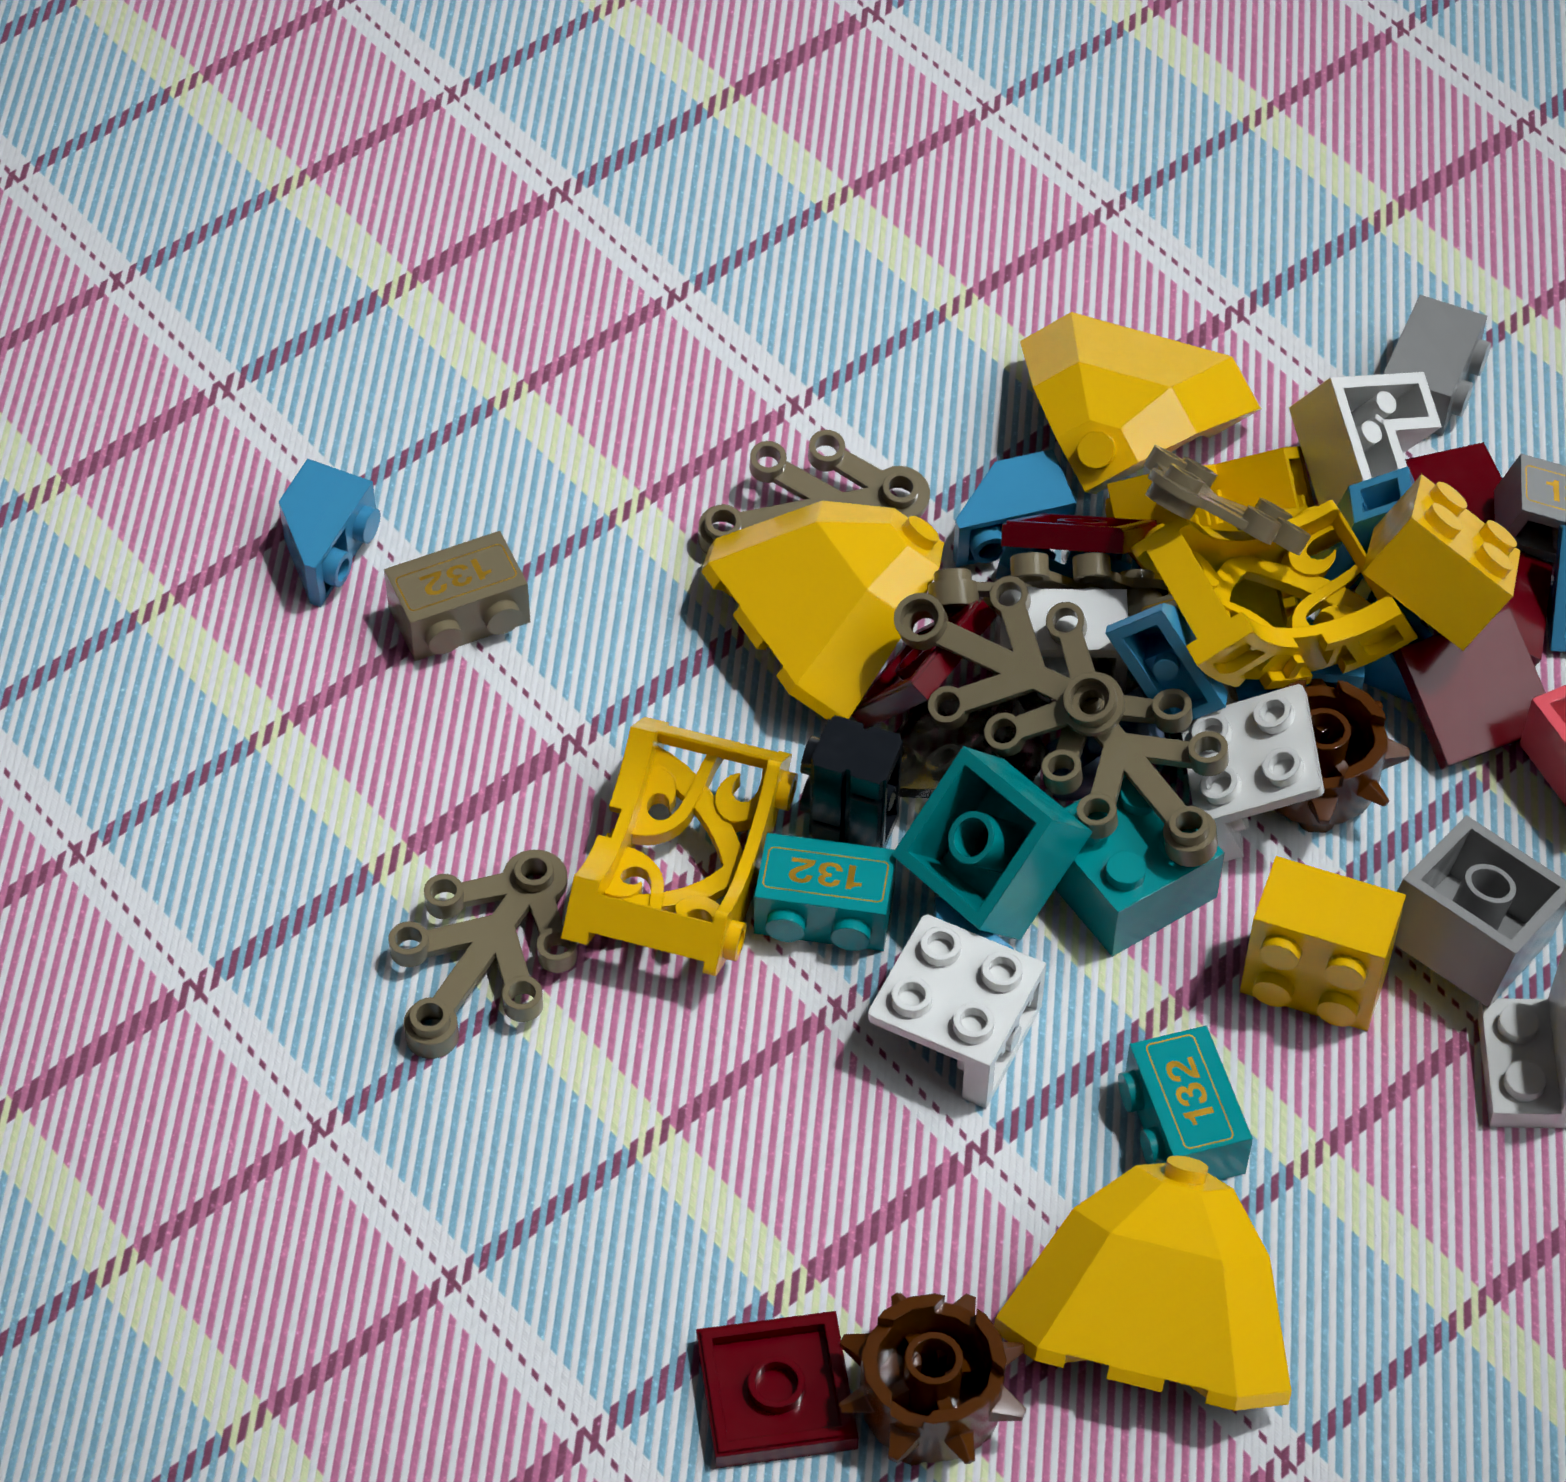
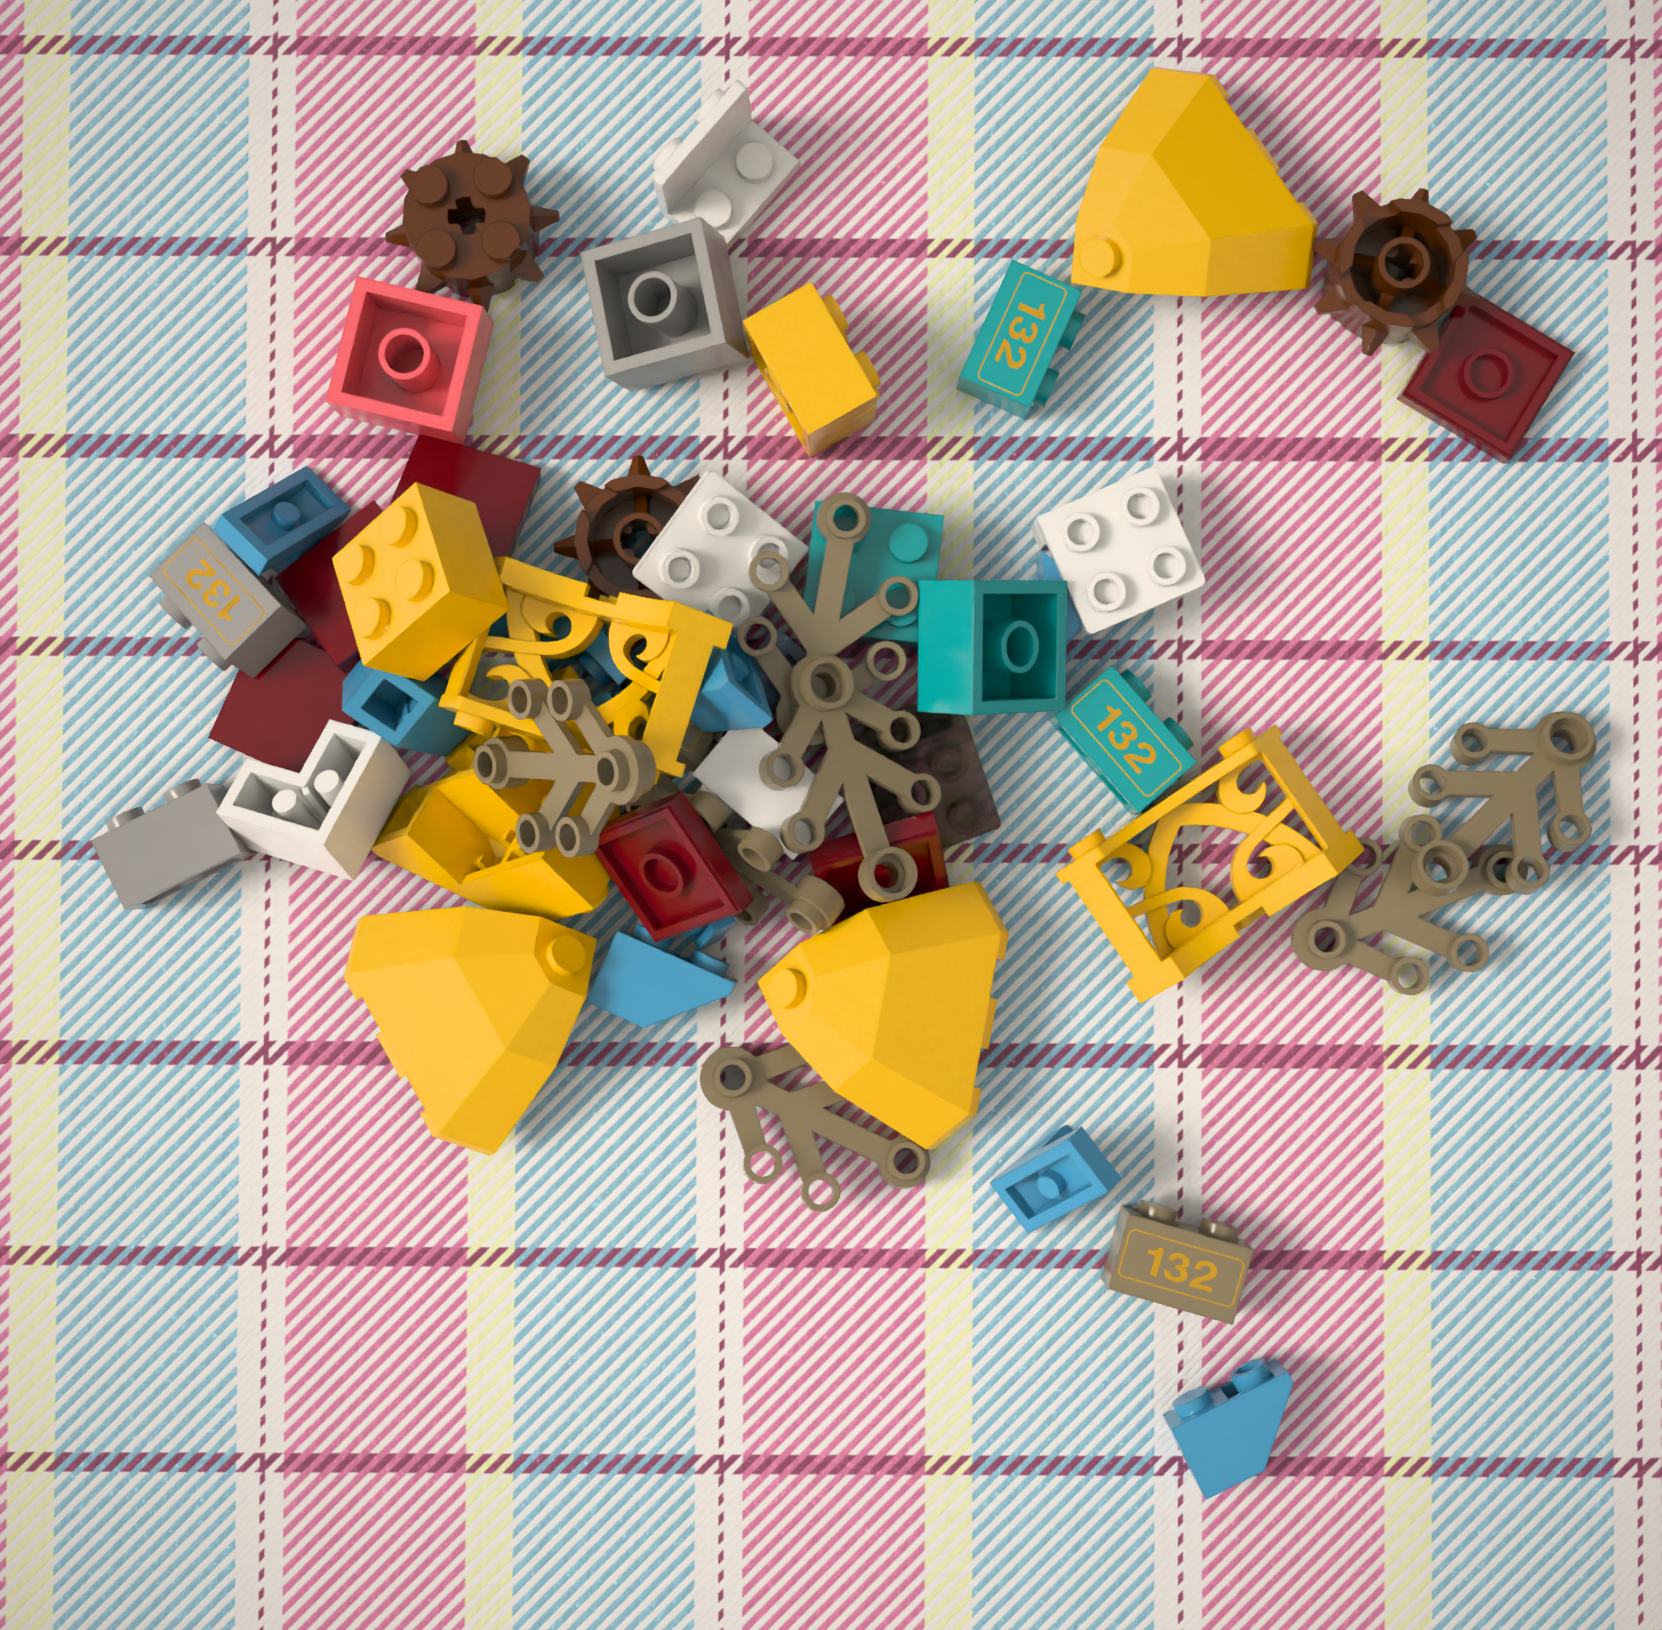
camera: 135 degrees left, 35 degrees up
(472, 1068) = (1510, 795): none -> dark tan plant
(599, 596) = (1055, 1178): none -> dark azure slope
(852, 783) = (1039, 801): black brick -> none

